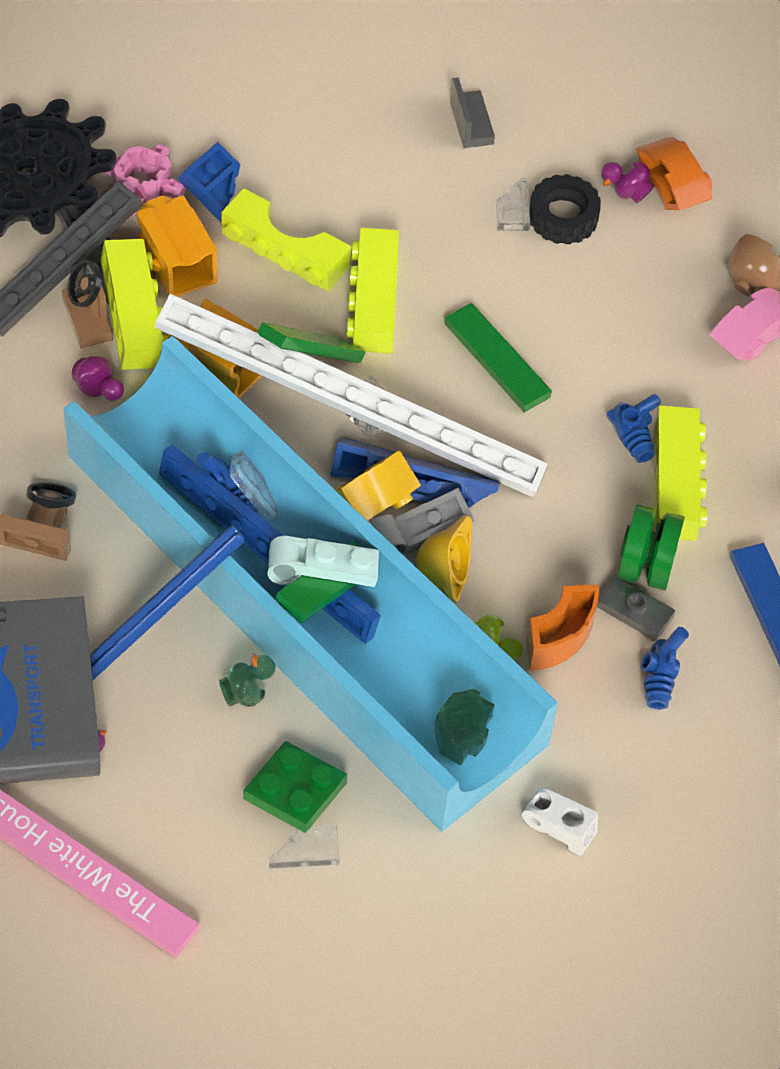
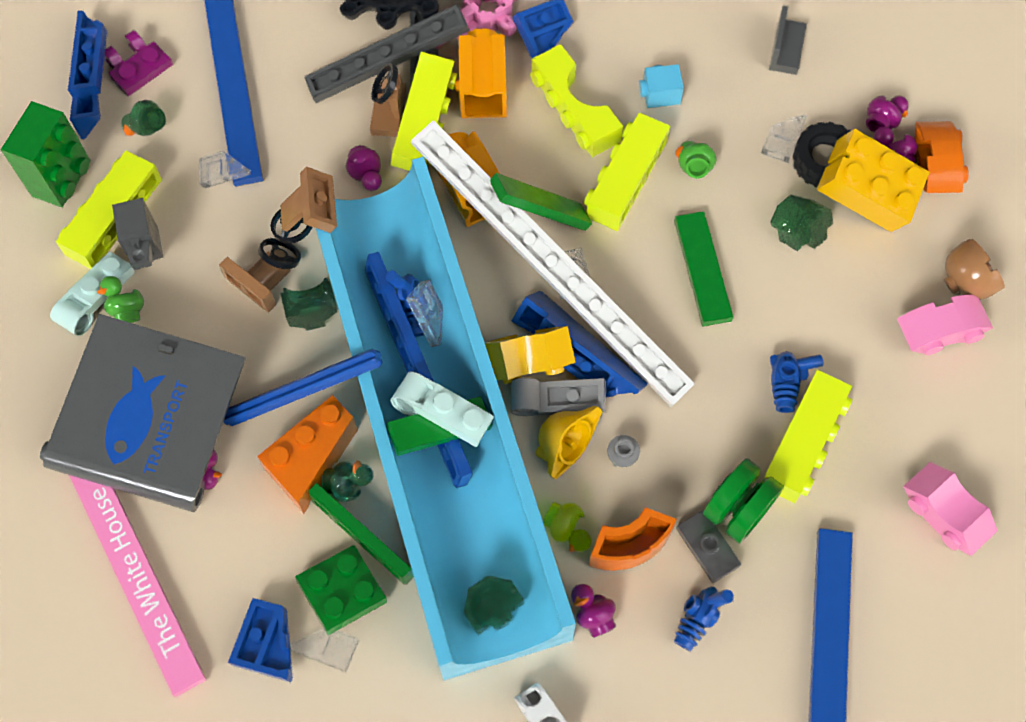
camera: 30 degrees right, 10 degrees up
(79, 413) = (309, 204): none -> medium nougat piece
(116, 533) = (309, 307): none -> clear green hair
(189, 673) = (308, 450): none -> orange wedge
(244, 865) = (264, 641): none -> blue wing
(288, 727) = (361, 534): none -> green tile
(367, 197) = (661, 86): none -> medium azure brick
(437, 255) = (696, 158): none -> bright green animal
(510, 551) = (623, 451): none -> light grey plate
(568, 708) = (595, 611): none -> magenta animal
(573, 279) = (801, 222): none -> clear green hair
(601, 149) = (886, 113): none -> magenta animal
(624, 214) = (873, 180): none -> yellow piece

